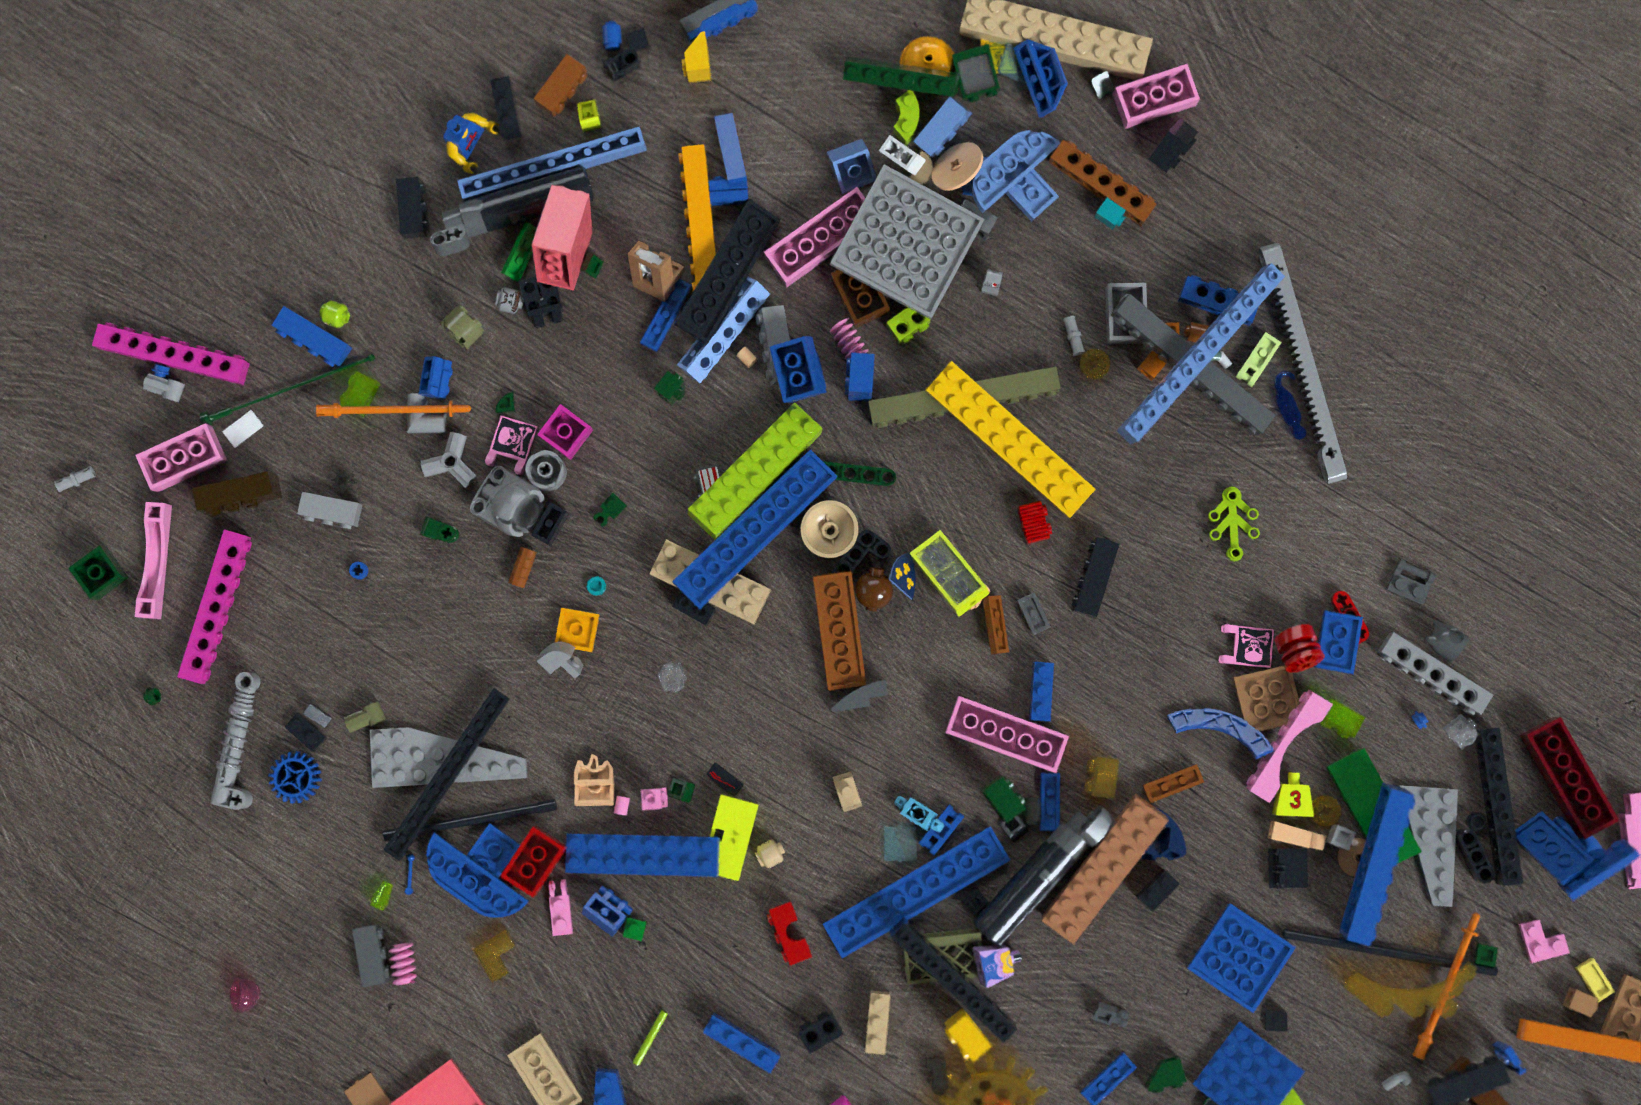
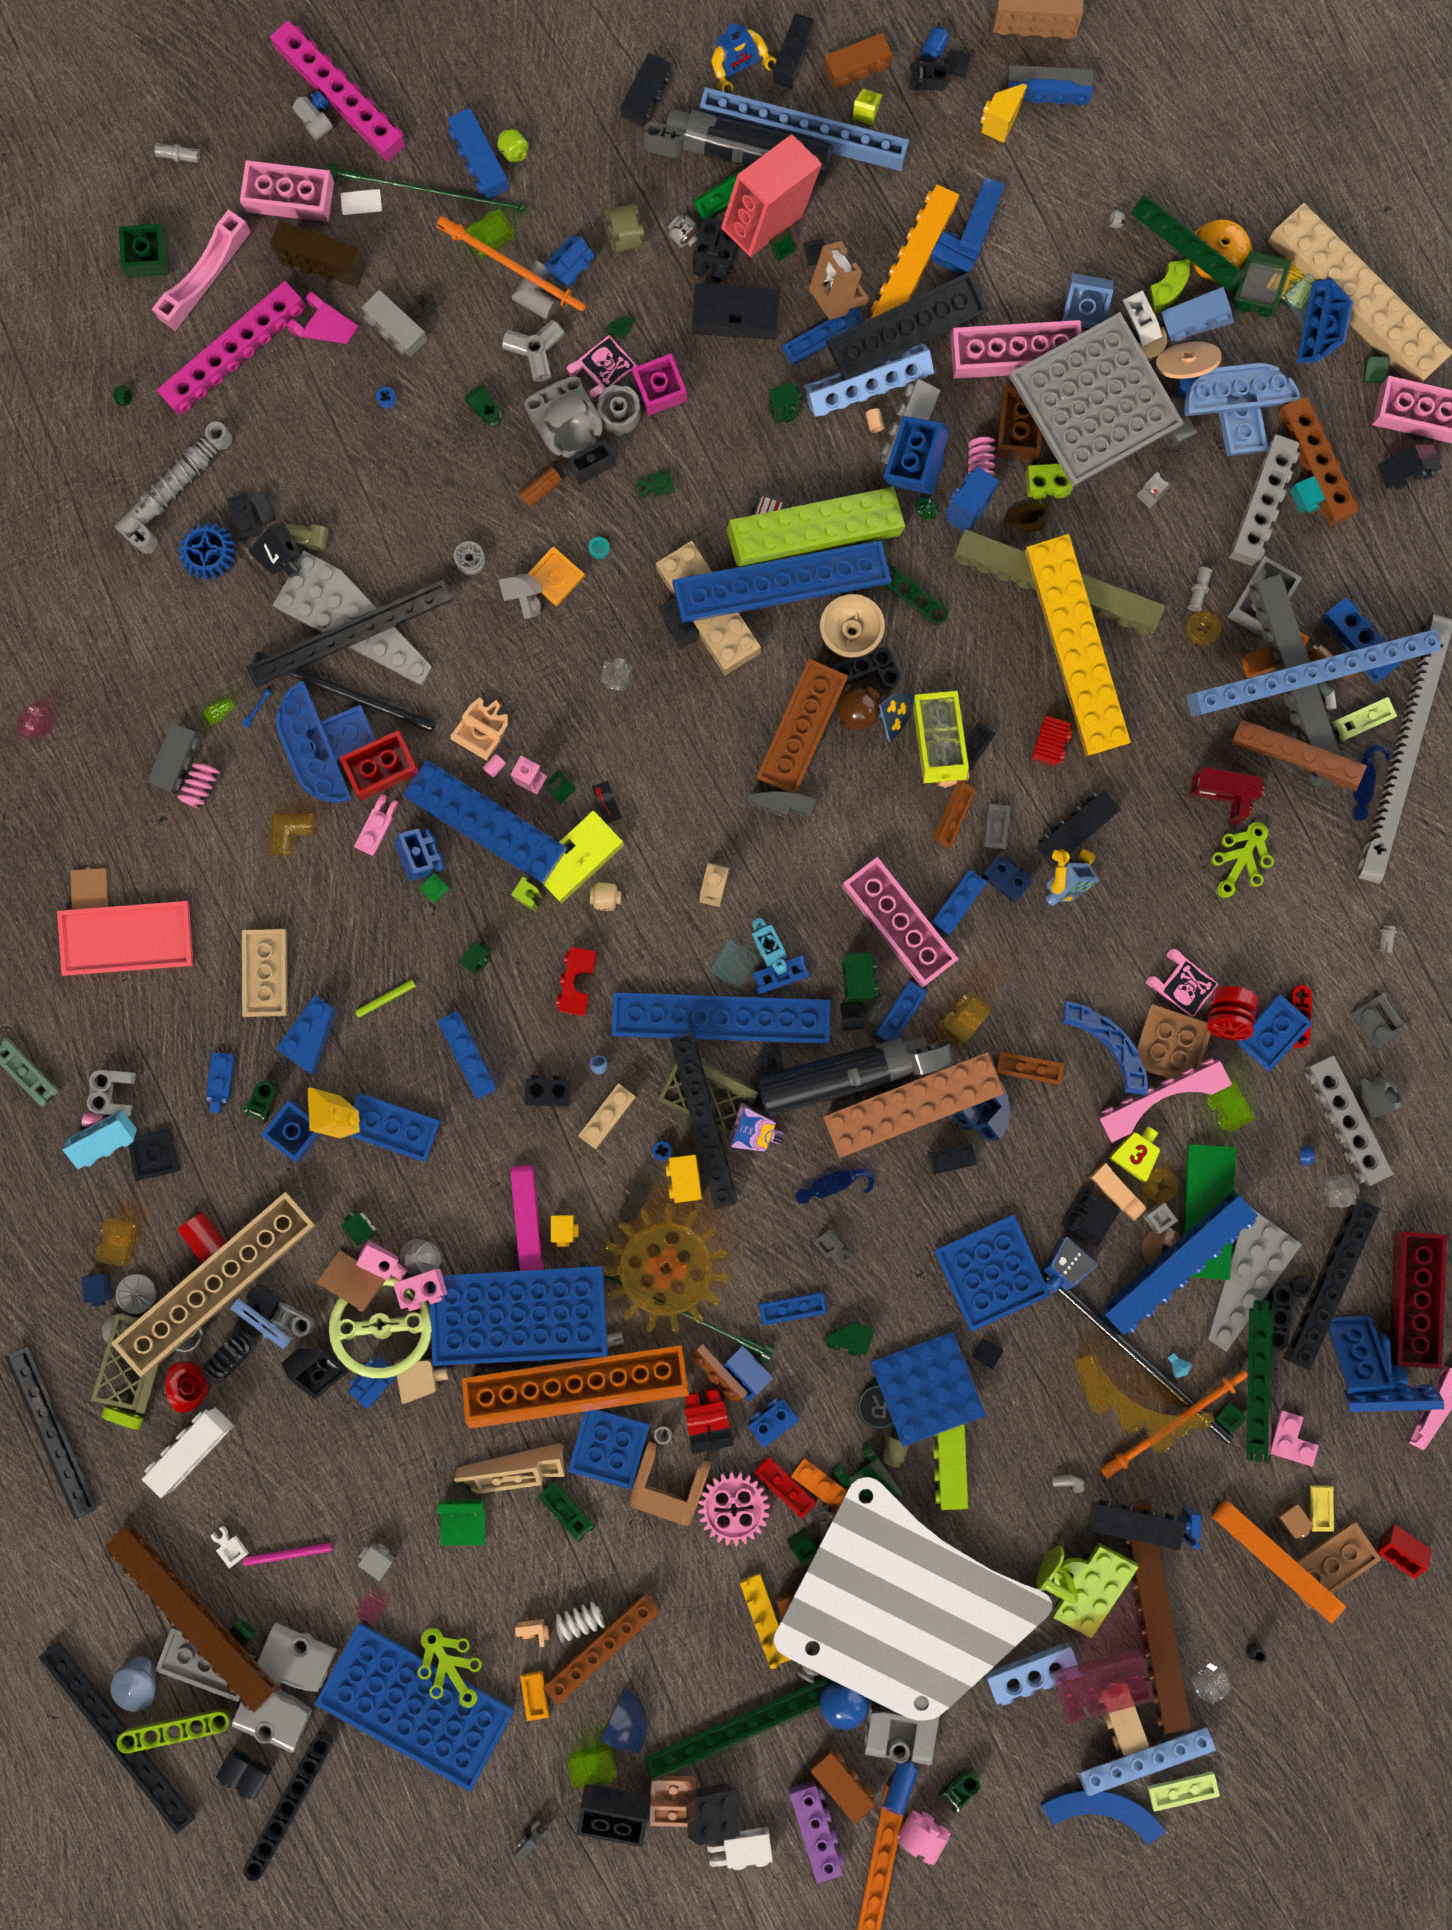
camera: 30 degrees right, 0 degrees up
(275, 542) = (325, 324): none -> dark pink flag
(350, 744) = (276, 550): none -> black torso
(494, 653) = (464, 551): none -> light grey wheel
(588, 338) = (735, 311): none -> black brick
(619, 254) = (813, 250): none -> black plate
(700, 963) = (475, 957): none -> dark green brick
(708, 893) = (525, 893): none -> lime hinge
(829, 401) = (927, 508): none -> dark green plant
(833, 88) = (1116, 218): none -> light grey hinge
(845, 986) = (598, 1064): none -> medium blue hinge
(909, 361) = (1028, 517): none -> dark brown cap
(933, 1015) = (659, 1156): none -> blue bush
(979, 559) = (977, 743): none -> black plate
(1066, 649) = (1007, 878): none -> dark blue brick
(1080, 965) = (833, 1184): none -> clear blue piece
(1085, 285) = (1278, 448): none -> light grey brick
(1116, 621) = (1070, 879): none -> torso
(1191, 475) = (1230, 787): none -> dark red brick
(1227, 419) = (1273, 744): none -> dark orange arch
(1294, 917) = (1067, 1266): none -> torso
(1377, 515) = (1387, 936): none -> light grey pin
(1426, 940) = (1180, 1367): none -> medium azure rock
(1491, 915) = (1259, 1382): none -> dark green hinge

